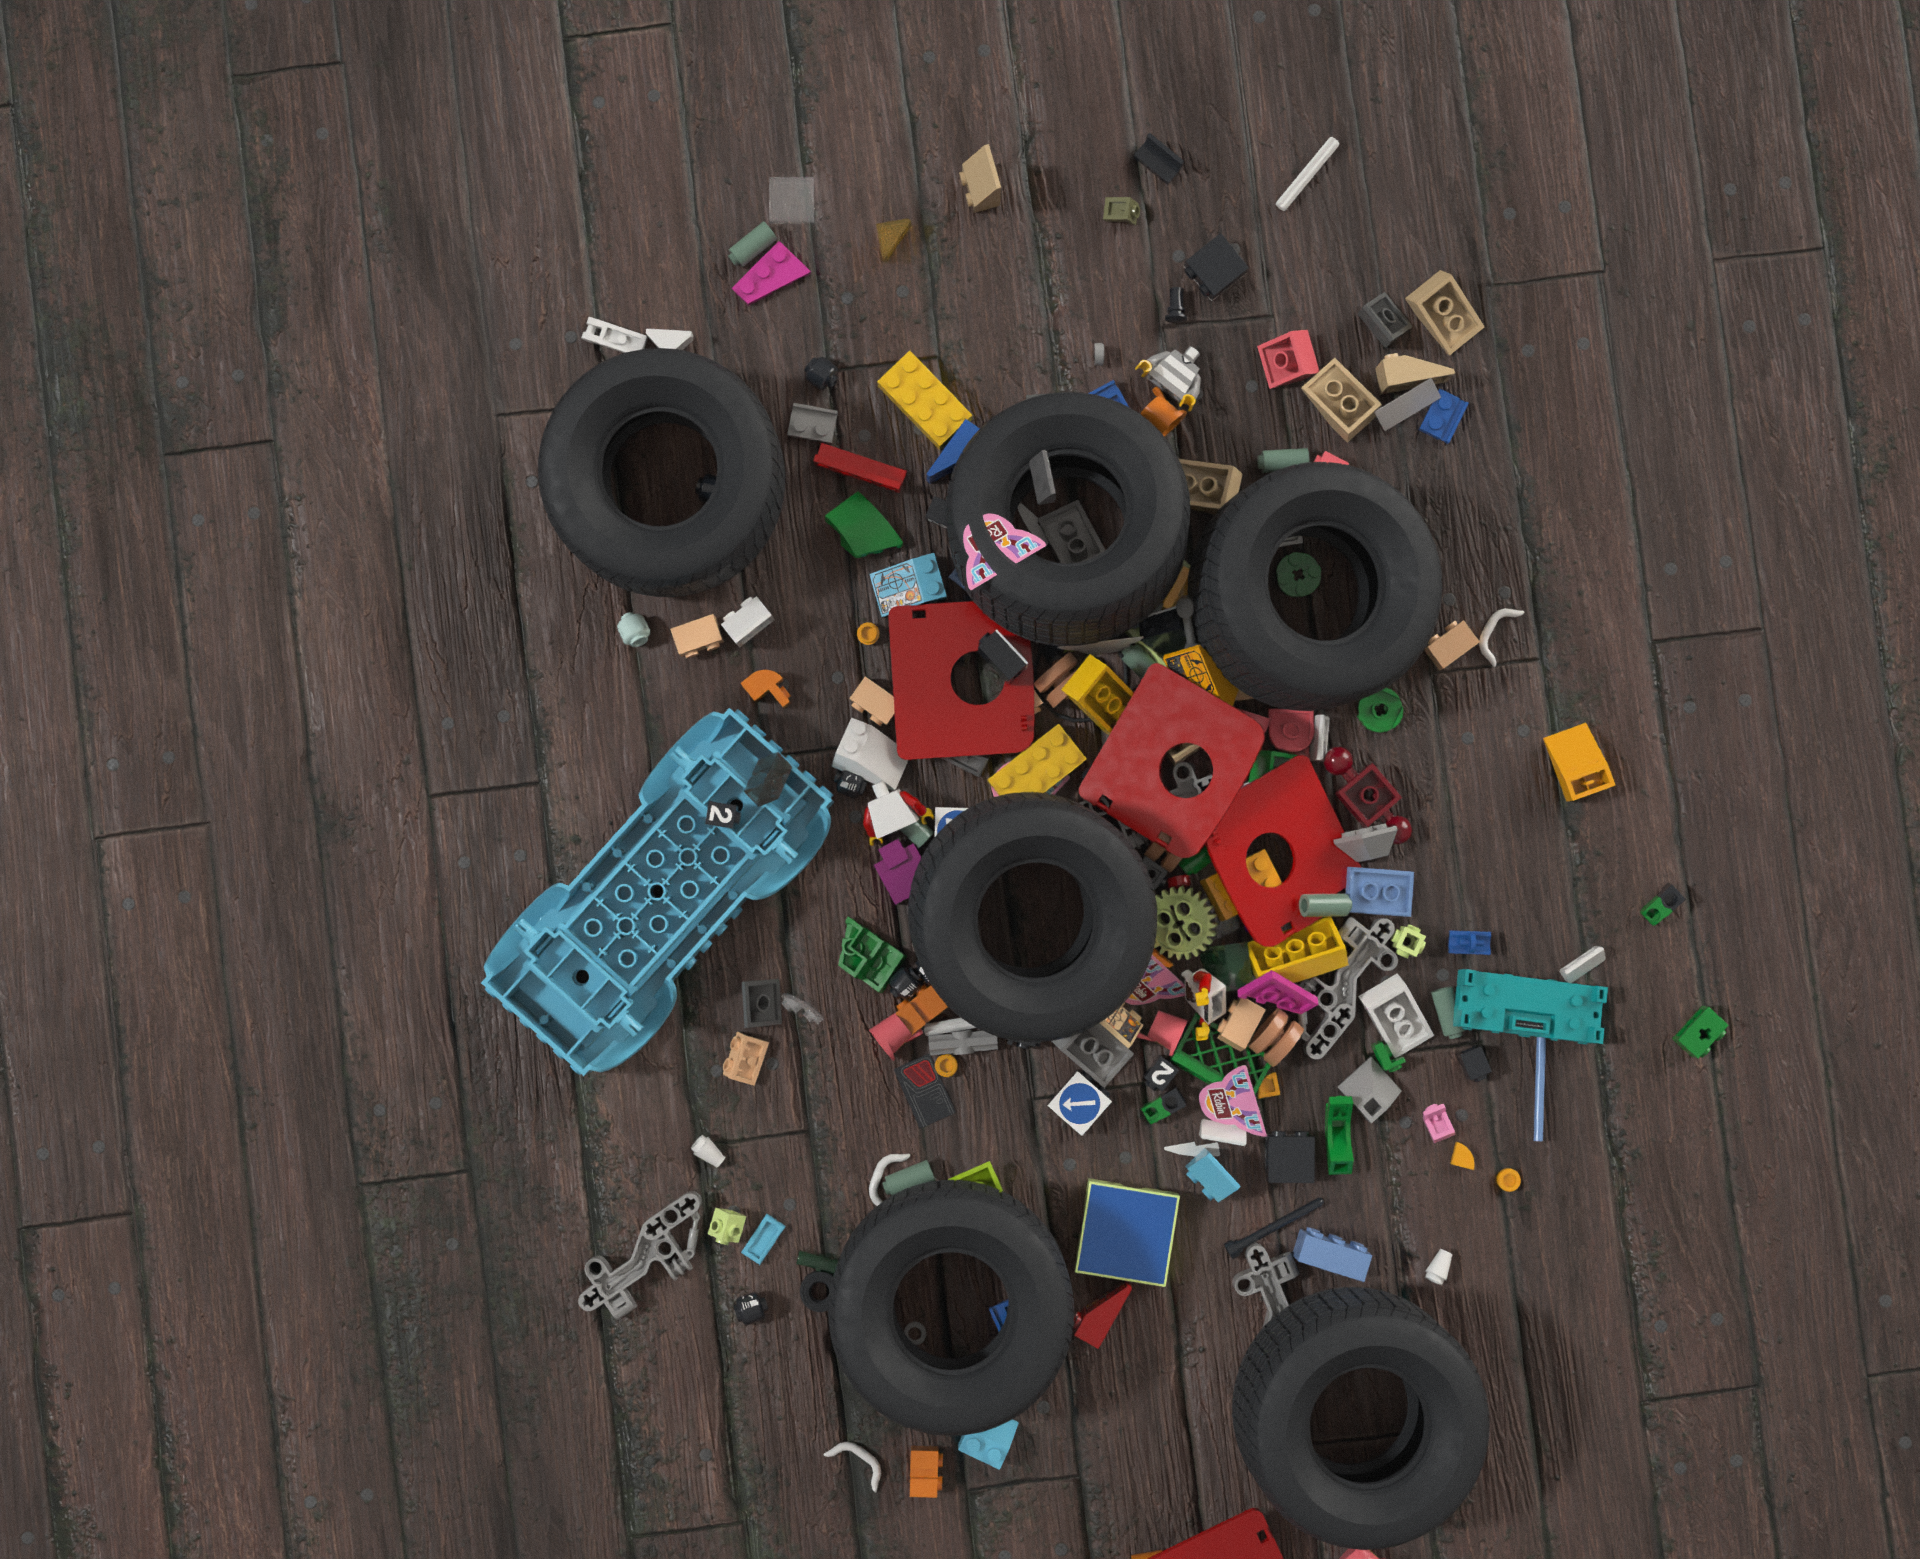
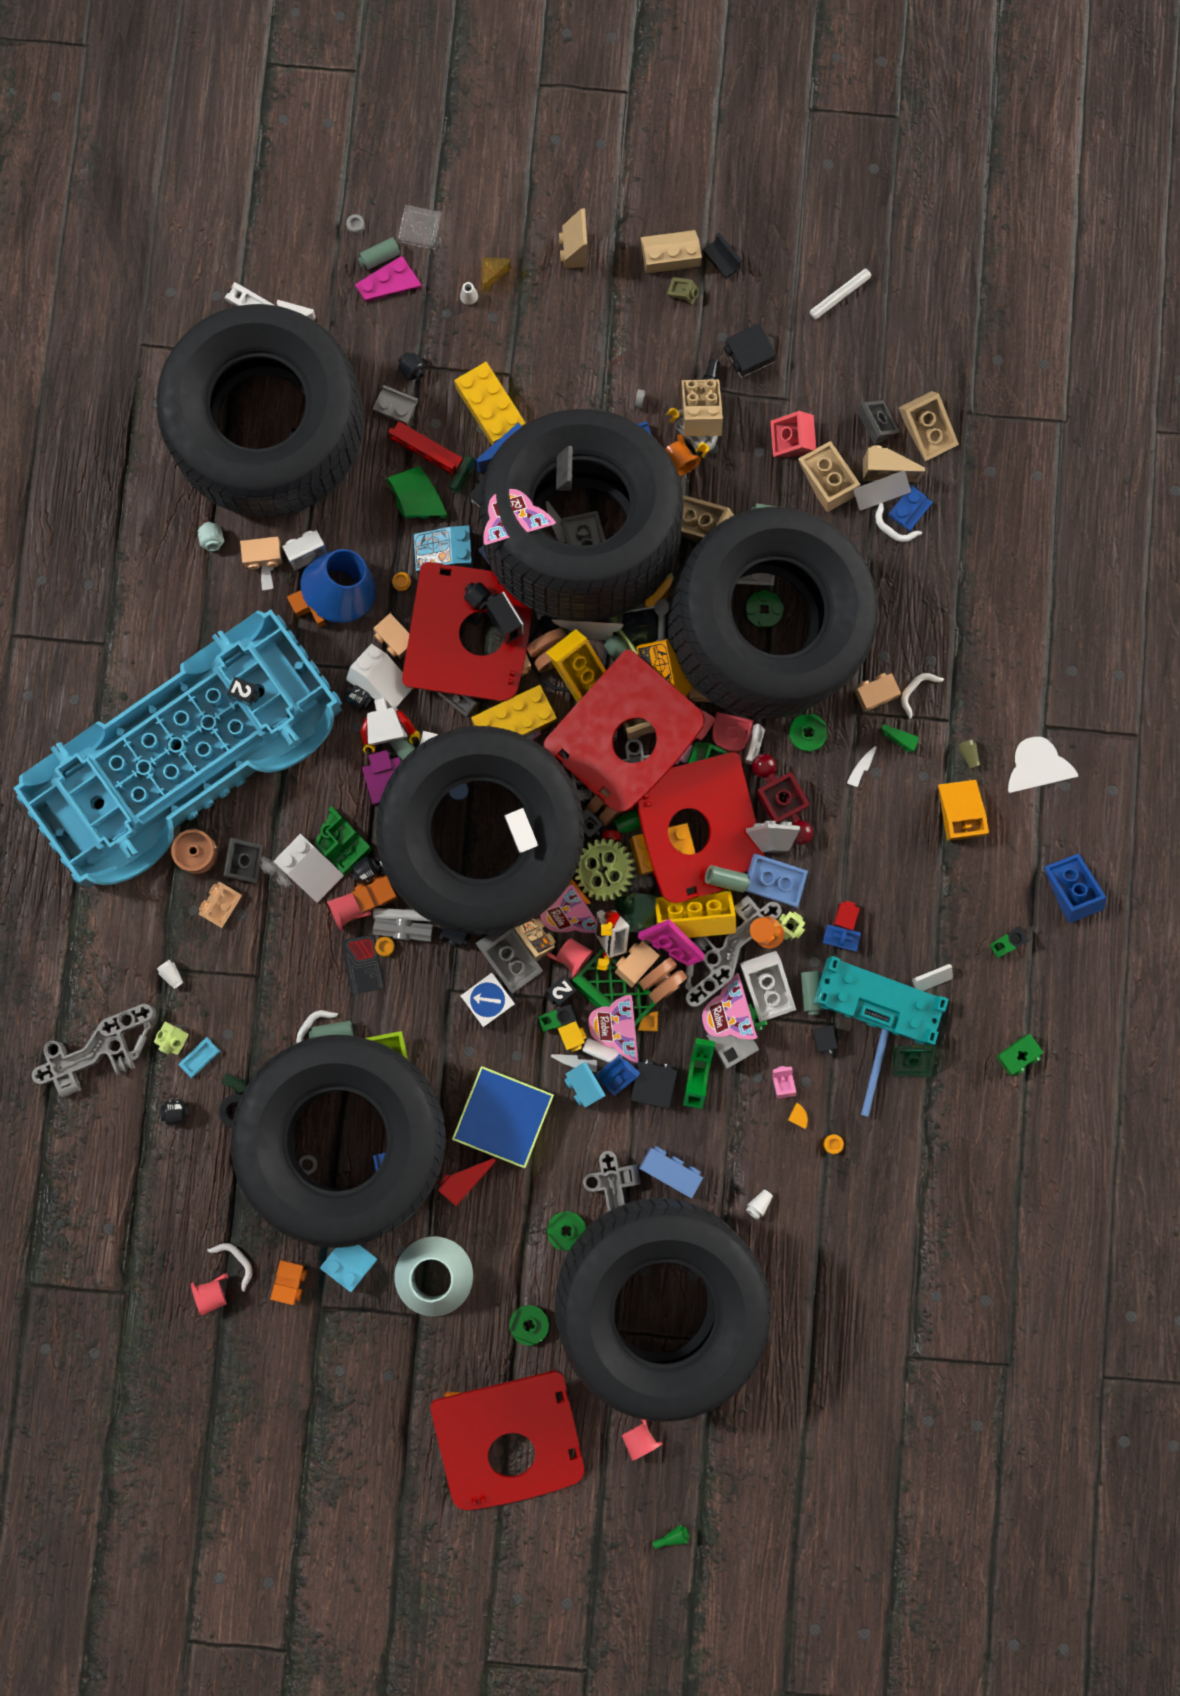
camera: 10 degrees right, 5 degrees down
(709, 664) = (266, 579): none -> white sticker
(712, 995) = (194, 840): none -> nougat wheel
(715, 213) = (355, 224): none -> light grey tile
(768, 779) = (288, 671): clear smoke piece -> none
(789, 677) = (333, 600): none -> blue cone
(838, 995) = (308, 868): none -> white slope
(839, 1506) = (209, 1295): none -> coral hat
(869, 276) = (468, 294): none -> white cone
(909, 489) = (462, 474): none -> clear green pin
(963, 636) = (477, 595): none -> black head
(1086, 915) = (521, 830): none -> white slope
(1086, 1400) = (449, 1254): none -> light aqua cone
(1096, 165) = (671, 251): none -> tan slope
(1176, 352) = (702, 408): none -> tan slope
(1185, 1123) = (572, 1036): none -> yellow brick
(1213, 1346) = (555, 1229): none -> green plate
(1216, 1470) = (519, 1330): none -> green plate
(1235, 1247) = (592, 1150): black piece -> none
(1246, 1156) = (617, 1074): none -> blue plate
(1359, 1057) = (729, 1013): none -> sticker
(1384, 956) = (767, 932): none -> orange hat
(1429, 451) = (889, 531): none -> white animal
(1451, 733) = (864, 764): none -> white sticker
(1469, 915) = (846, 915): none -> red brick
(1492, 694) = (901, 738): none -> green slope
(1572, 692) = (969, 752): none -> olive cone
(1580, 1064) = (913, 1061): none -> clear green slope
(1653, 689) = (1038, 765): none -> white sticker
(1726, 825) = (1075, 888): none -> blue slope

